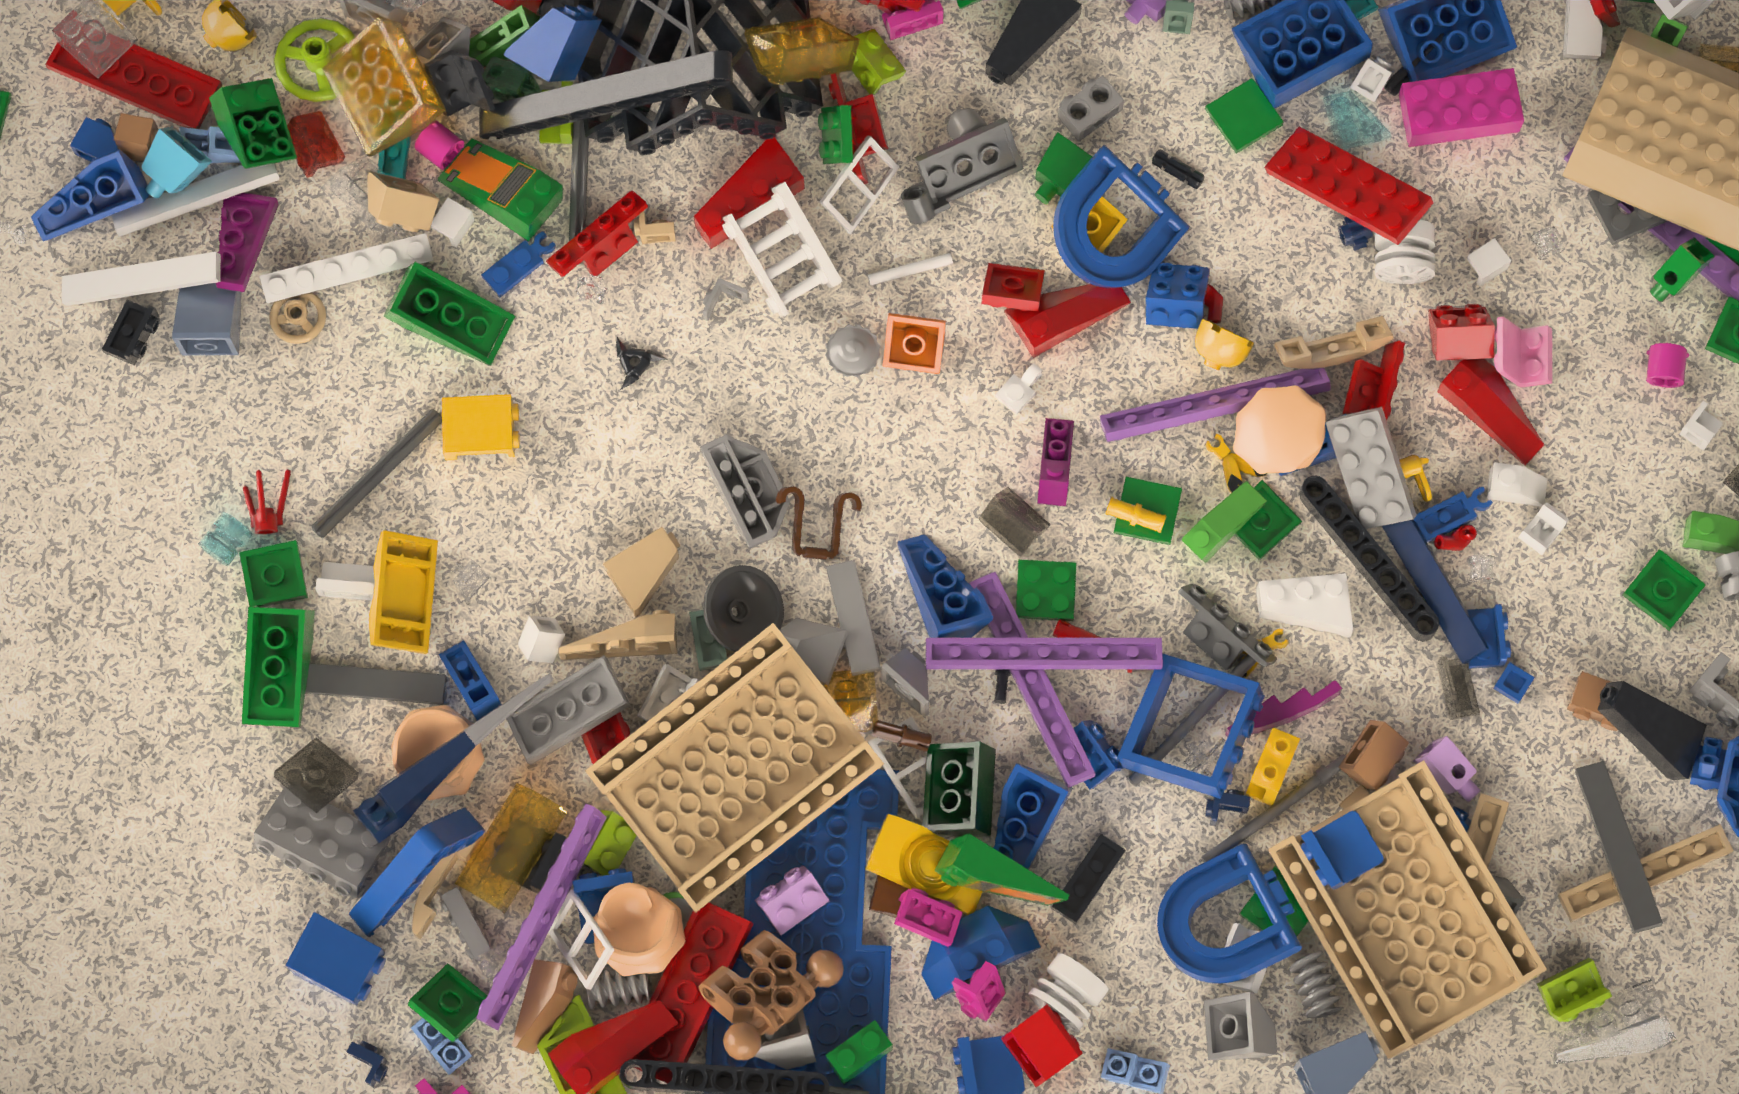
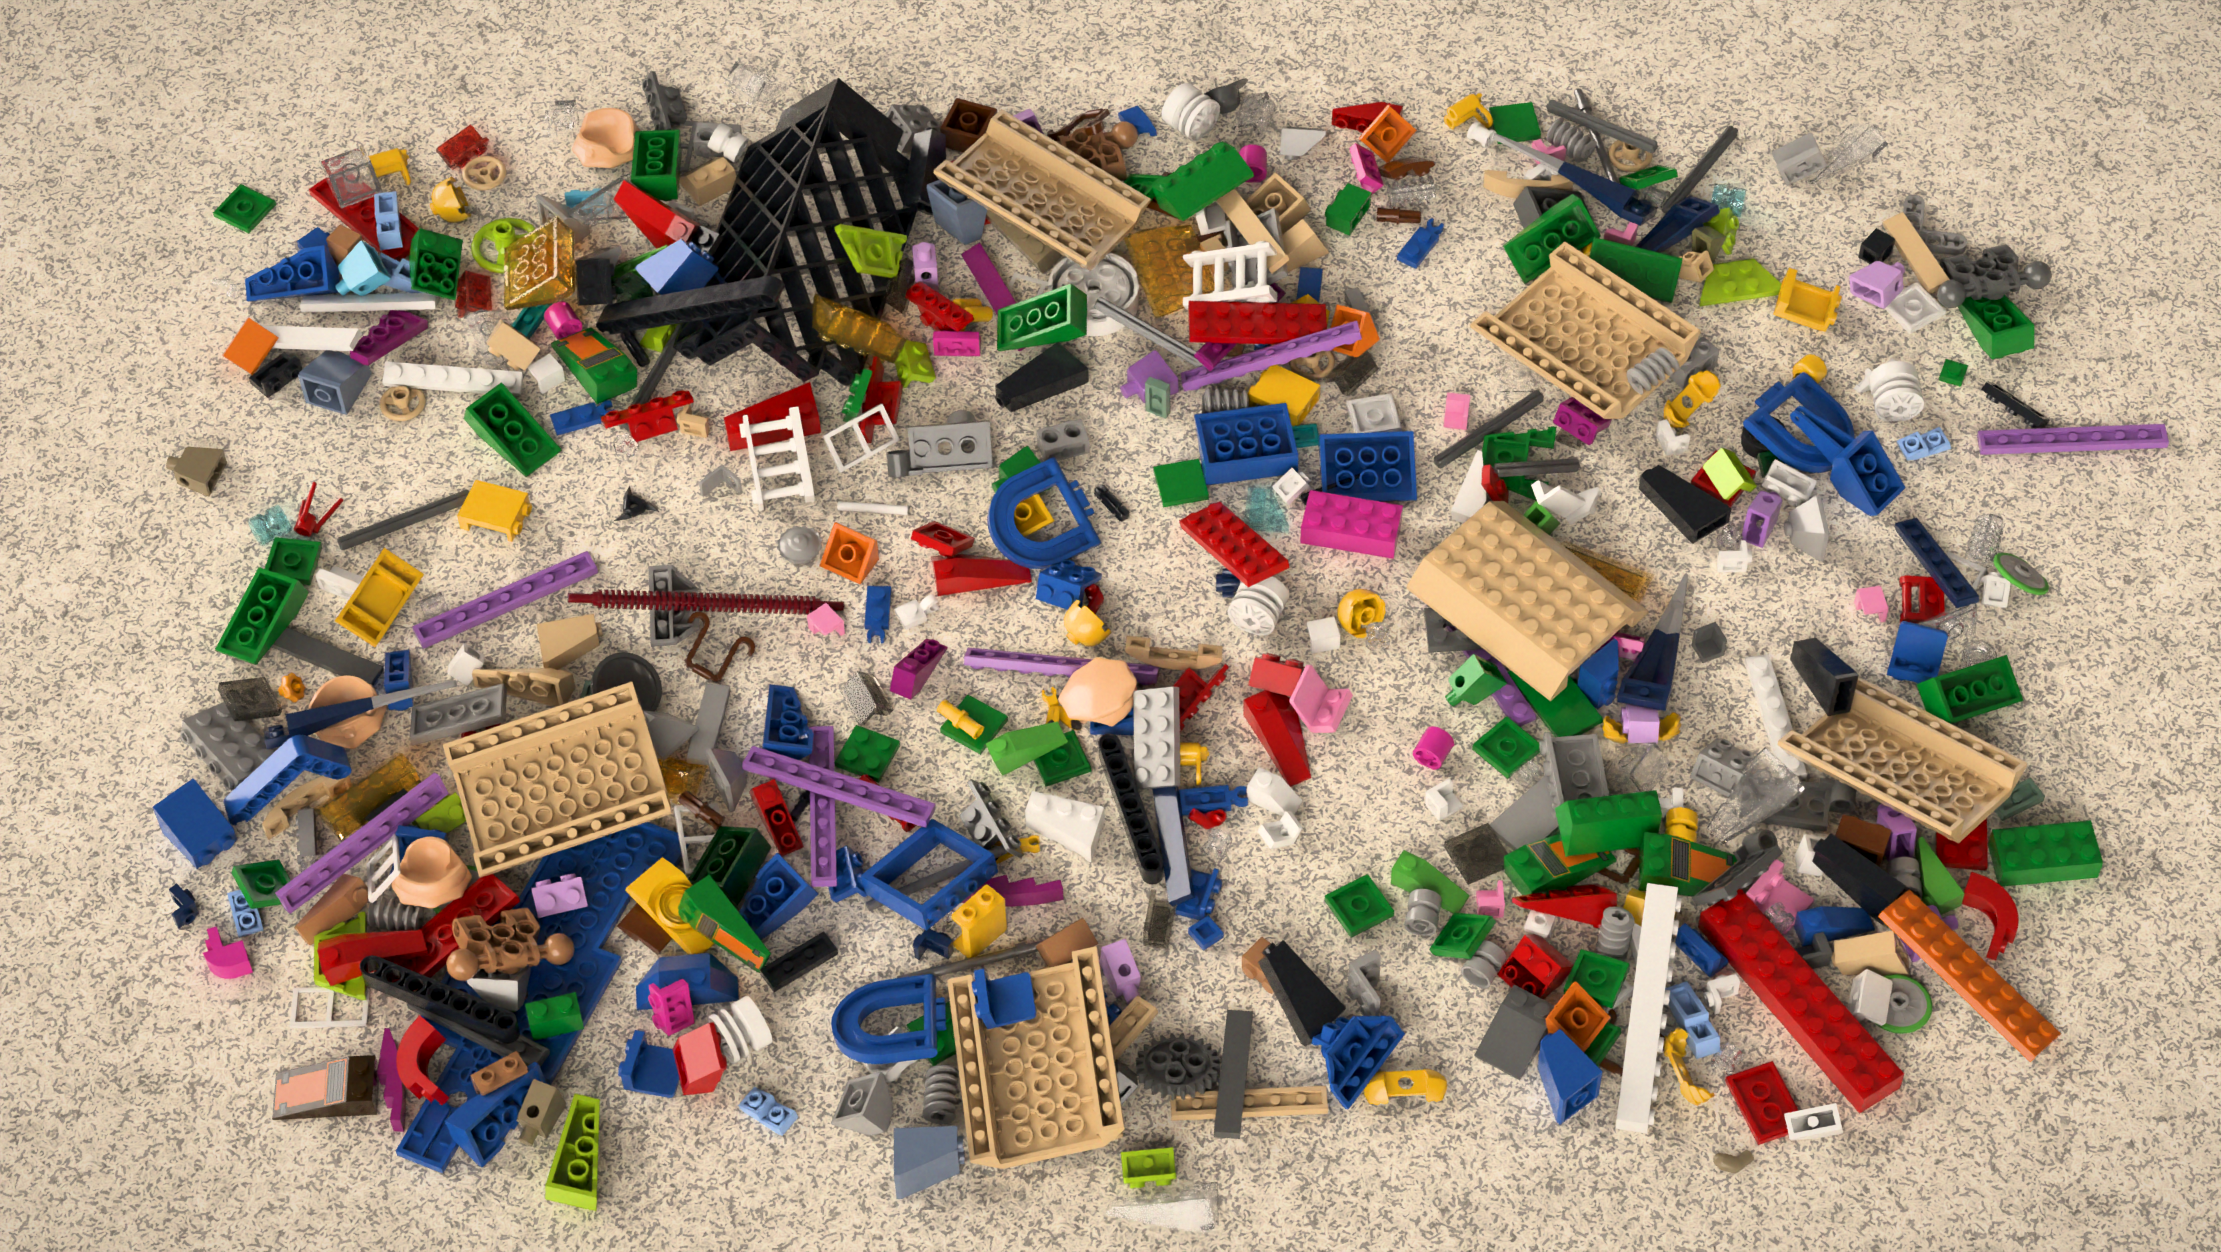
camera: 20 degrees right, 20 degrees down
(82, 308) = (250, 346): none -> orange slope
(101, 492) = (198, 468): none -> dark tan torso
(166, 78) = (388, 220): none -> light blue slope
(355, 741) = (292, 687): none -> light orange piece
(539, 151) = (635, 348): none -> black axle
(545, 539) = (505, 599): none -> medium lavender plate
(787, 471) = (708, 602): none -> dark red hose
(927, 441) = (825, 621): none -> bright pink panel
(928, 917) = (656, 938): dark pink bracket -> none
(976, 403) = (877, 611): none -> blue plate
(982, 709) = (776, 817): none -> red slope
(1515, 216) = (1359, 608): none -> yellow cylinder
(1555, 859) = (1177, 1066): none -> dark grey gear

